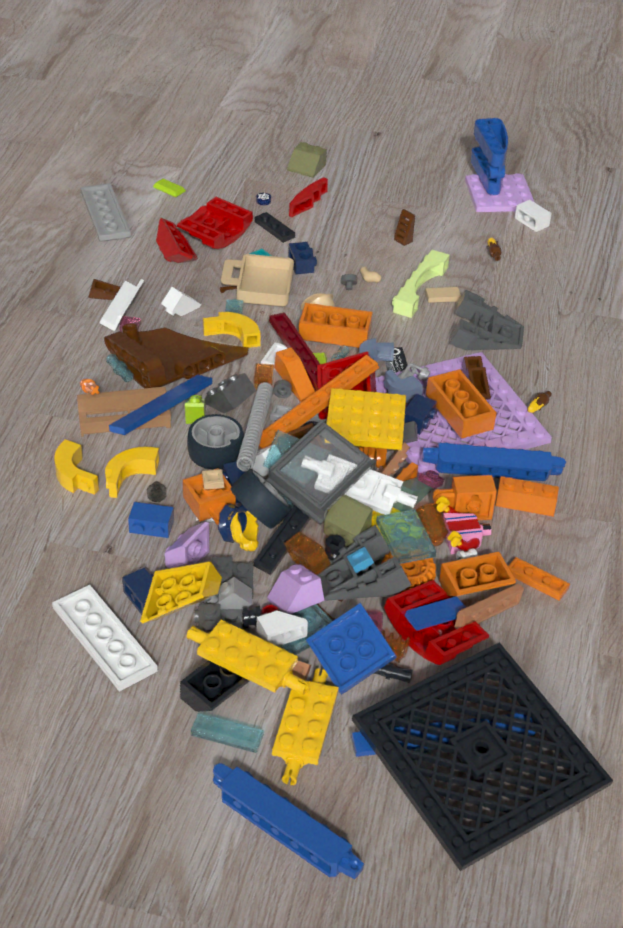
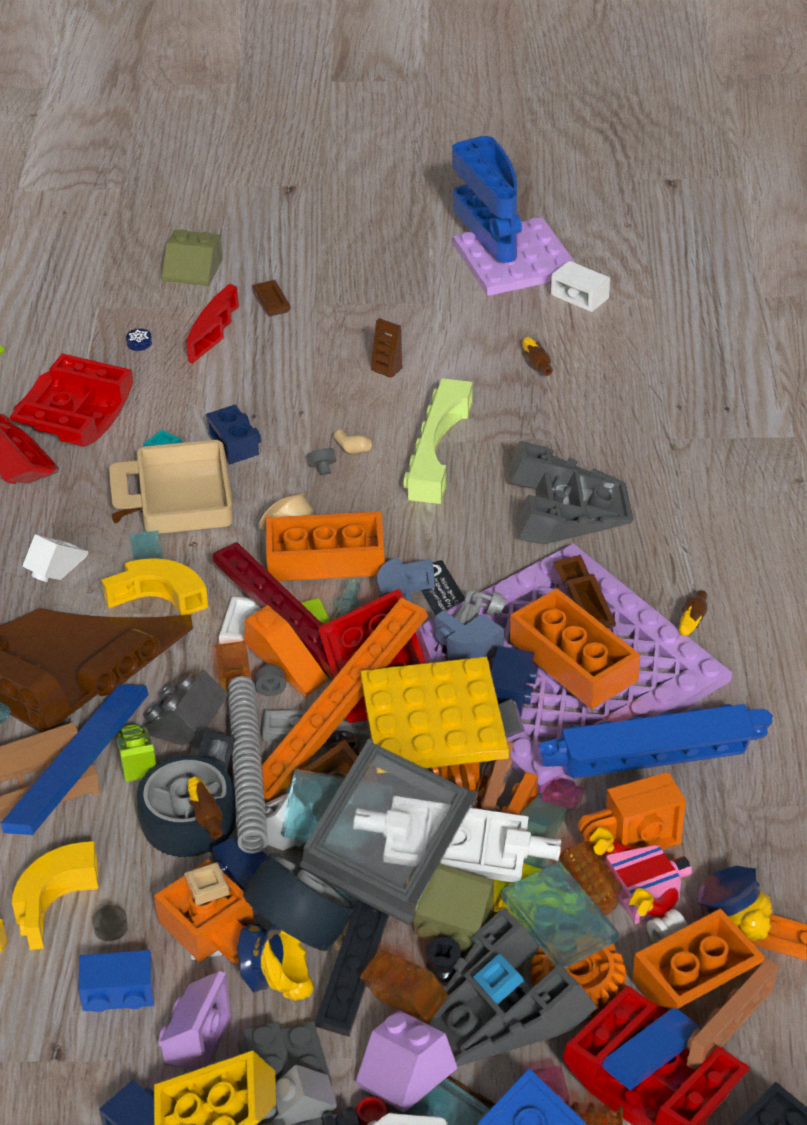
camera: 10 degrees left, 0 degrees up
(224, 443) = (206, 809): none -> reddish brown piece
(239, 413) = (213, 746): none -> black brick
(275, 227) = (172, 386): black plate -> none
(347, 190) = (271, 298): none -> reddish brown tile
(444, 294) = (480, 452): tan tile -> none
(513, 551) = (738, 895): none -> dark blue piece
(527, 496) = (729, 789): orange slope -> none

